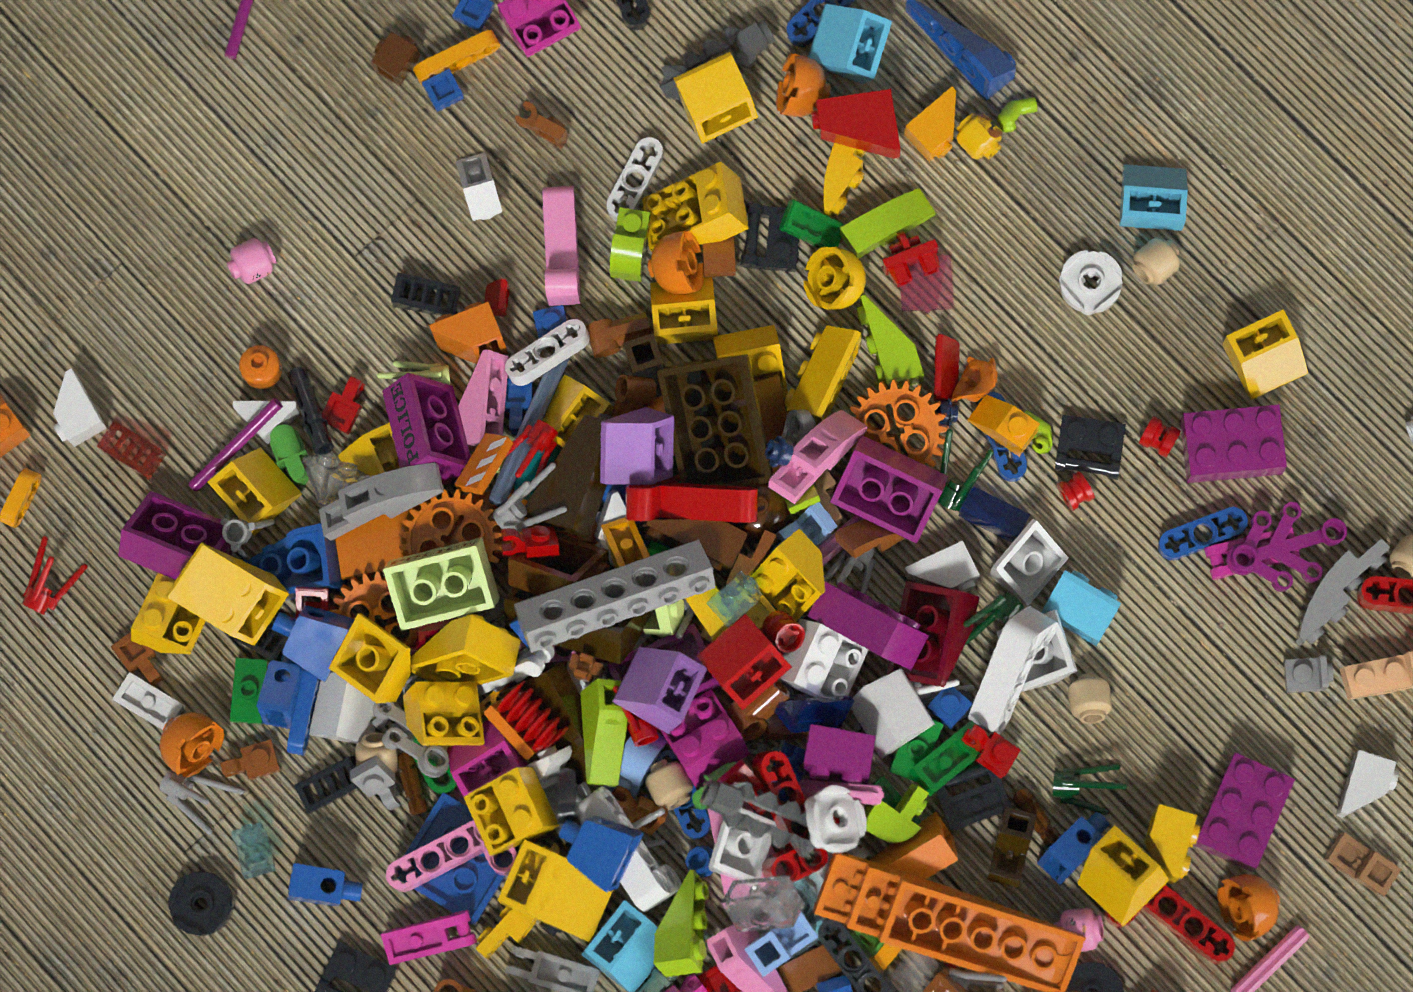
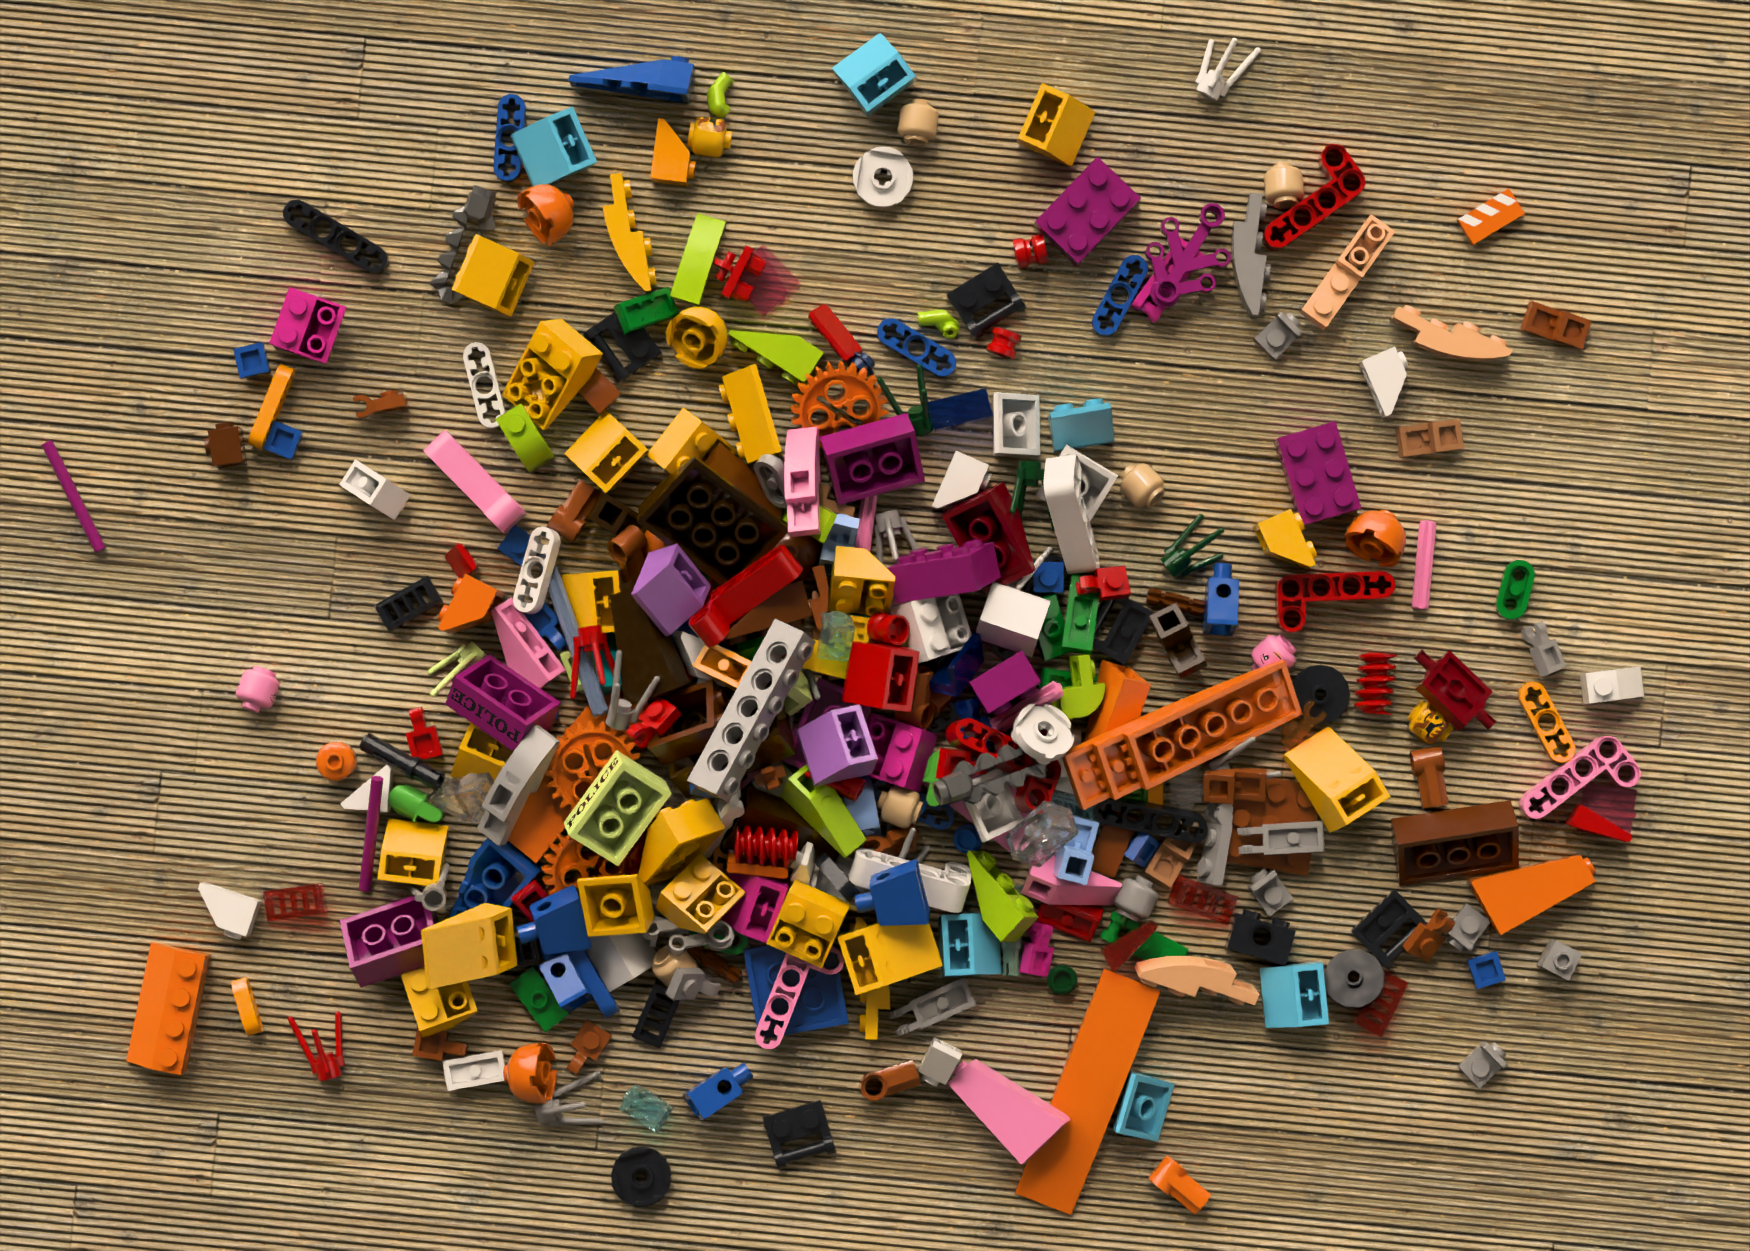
camera: 50 degrees left, 10 degrees up
(427, 937) = (824, 1060): dark pink plate -> none
(483, 463) = (567, 694): orange tile -> none
(675, 263) = (574, 426): orange cylinder -> none
(779, 451) = (777, 505): dark blue plate -> none
(860, 122) = (616, 204): red slope -> none
(864, 536) = (883, 508): dark orange slope -> none
(976, 380) = (864, 323): orange hat -> none
(1004, 424) = (912, 339): light orange slope -> none
(1120, 876) = (1273, 597): yellow slope -> none

